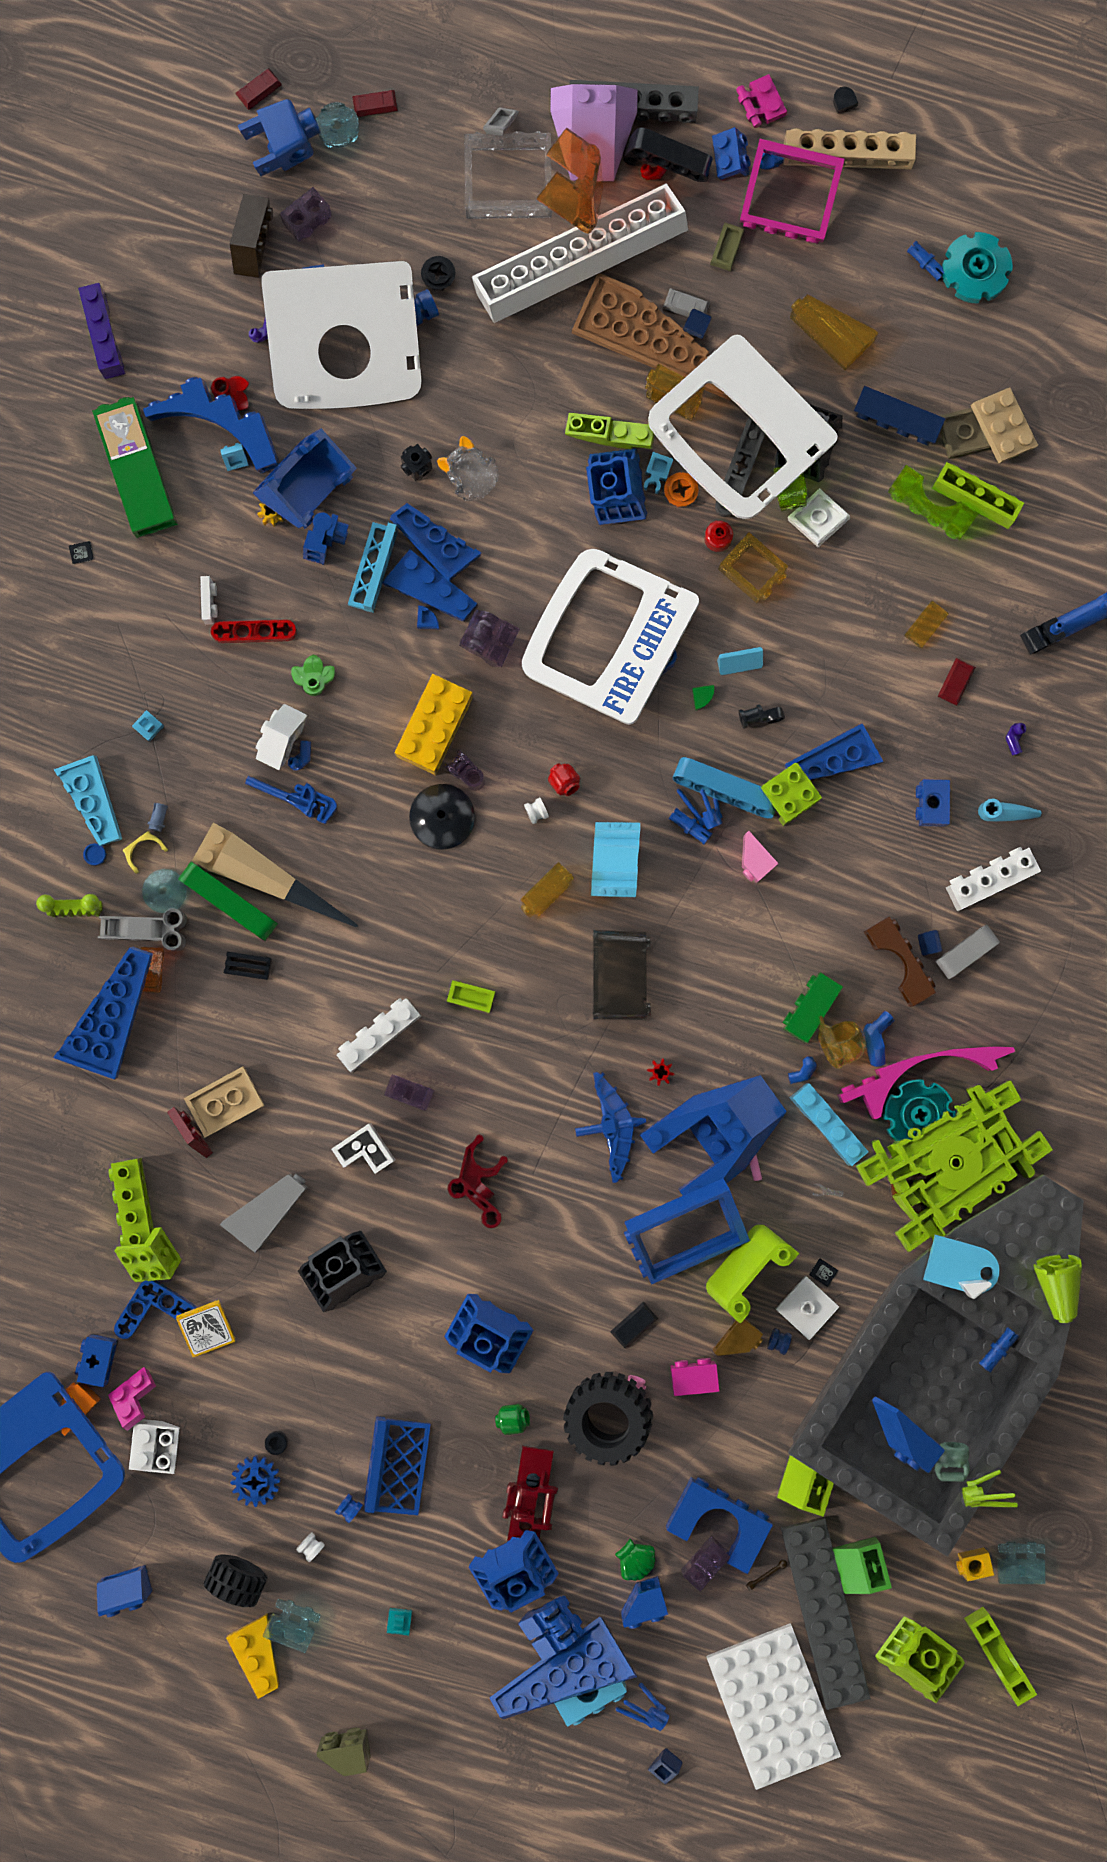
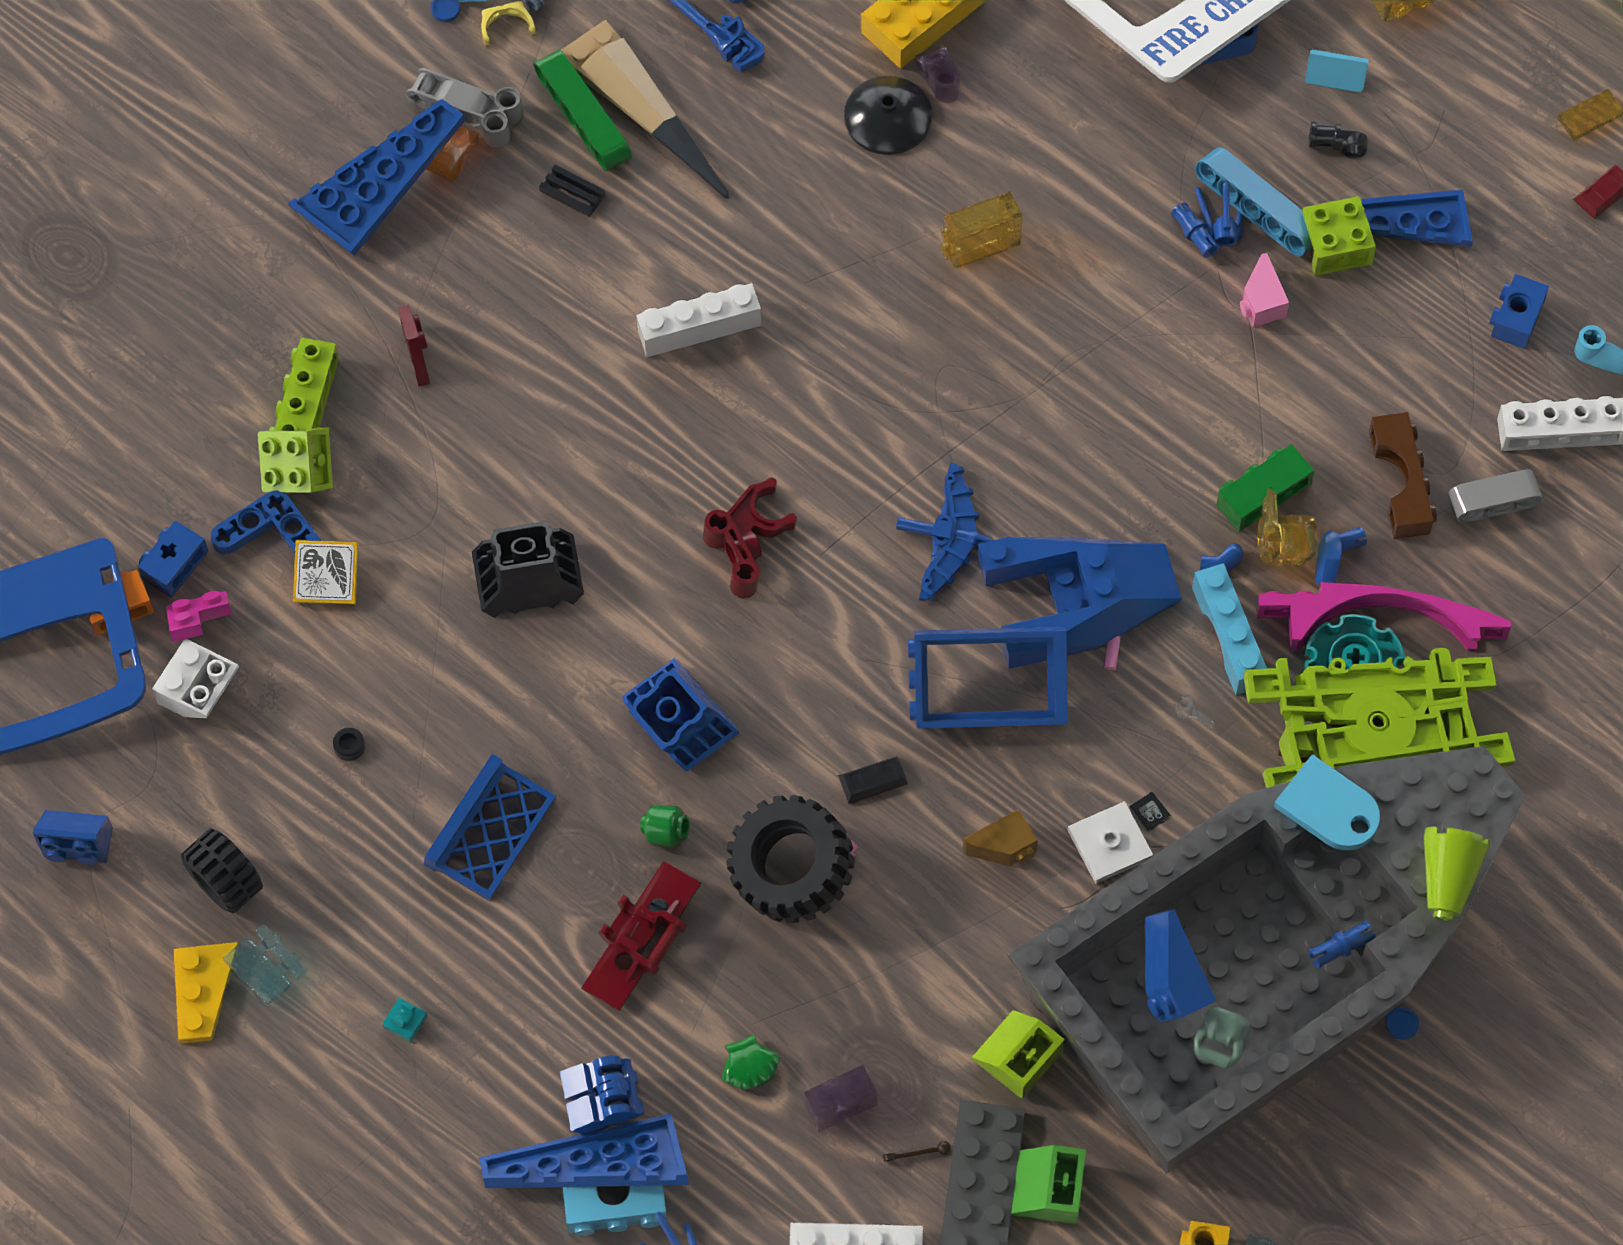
camera: 25 degrees right, 20 degrees down
(87, 905) = (390, 48): lime gear -> none
(174, 895) = (522, 78): clear light blue dish -> none
(224, 1102) = (472, 327): tan plate -> none
(255, 1490) = (295, 763): blue gear -> none
(264, 1213) = (464, 467): light grey slope -> none
(310, 1547) = (333, 879): white wheel -> none
(346, 1752) = (266, 1138): olive slope -> none
(348, 1508) = (404, 852): blue wheel -> none
(367, 1144) = (623, 432): white brick -> none
(409, 1092) = (707, 395): clear purple brick -> none
(471, 996) = (833, 323): lime tile -> none
(514, 1572) = (583, 1008): blue slope -> none
(536, 810) = (1008, 144): white wheel -> none
(564, 779) = (1058, 122): red head -> none
(615, 859) = (1085, 225): medium azure slope -> none
(620, 975) = (1029, 360): clear smoke windscreen -> none
(644, 1604) = (737, 1109): blue slope -> none
(665, 1068) = (1036, 490): red gear -> none
(694, 1377) = (924, 863): dark pink brick -> none
(699, 1498) = (868, 1016): blue arch -> none
(702, 696) = (1272, 95): green tile -> none
(743, 1266) = (1091, 738): lime windscreen -> none
(779, 1341) = (1055, 865): dark blue wheel -> none
(929, 942) = (1450, 469): dark blue slope -> none
(975, 1287) = (1336, 825): white slope -> none
(975, 1497) = (1234, 1086): lime plant -> none

